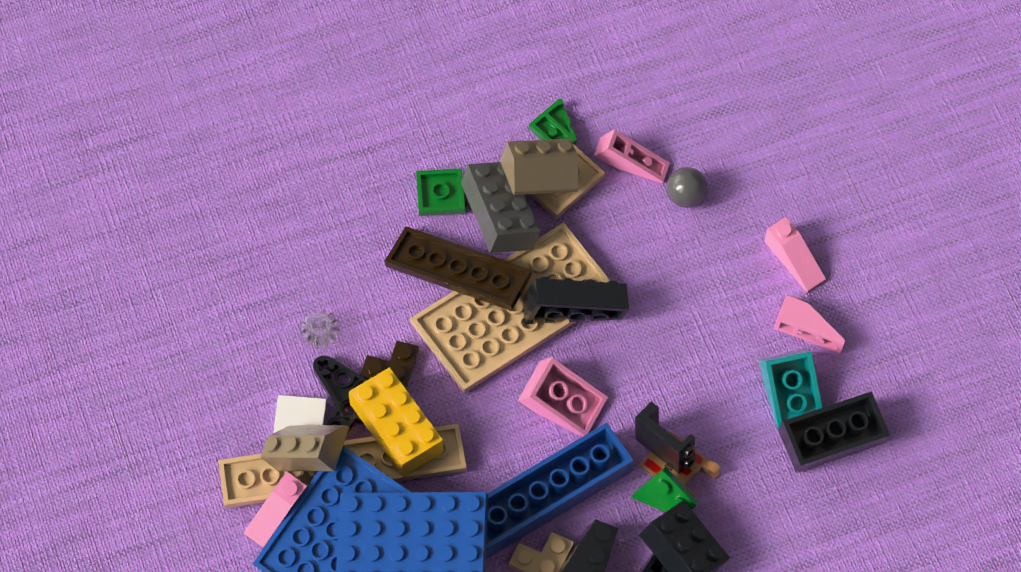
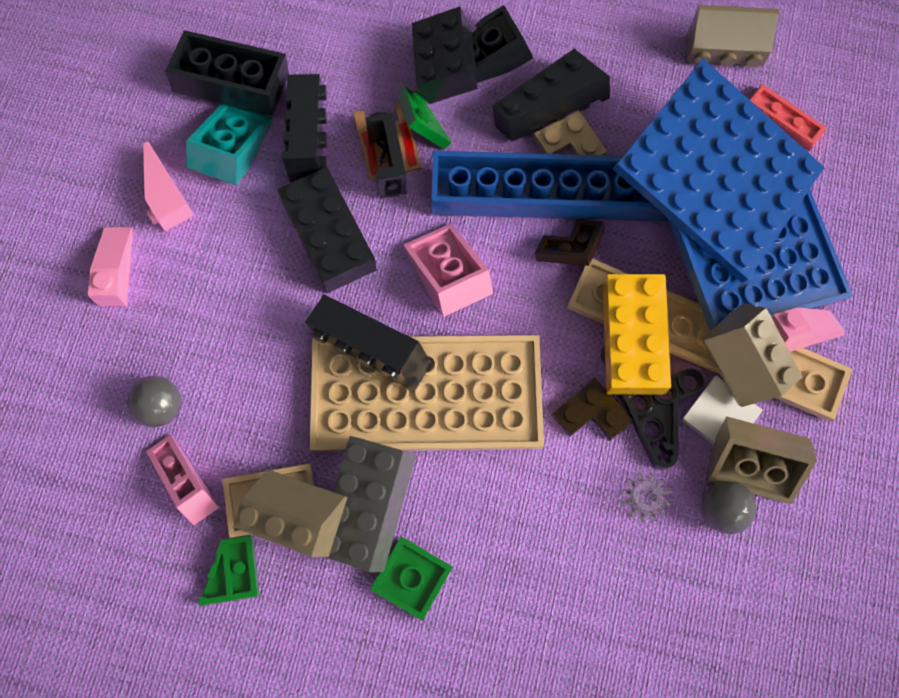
camera: 145 degrees left, 10 degrees up
(256, 400) = (761, 459): none -> dark tan slope
(260, 353) = (729, 507): none -> dark grey piece
(458, 268) = (459, 466): dark brown plate -> none
(480, 463) = (575, 249): none -> dark brown plate
(668, 368) = (327, 229): none -> black brick
(744, 430) = (304, 126): none -> black wedge

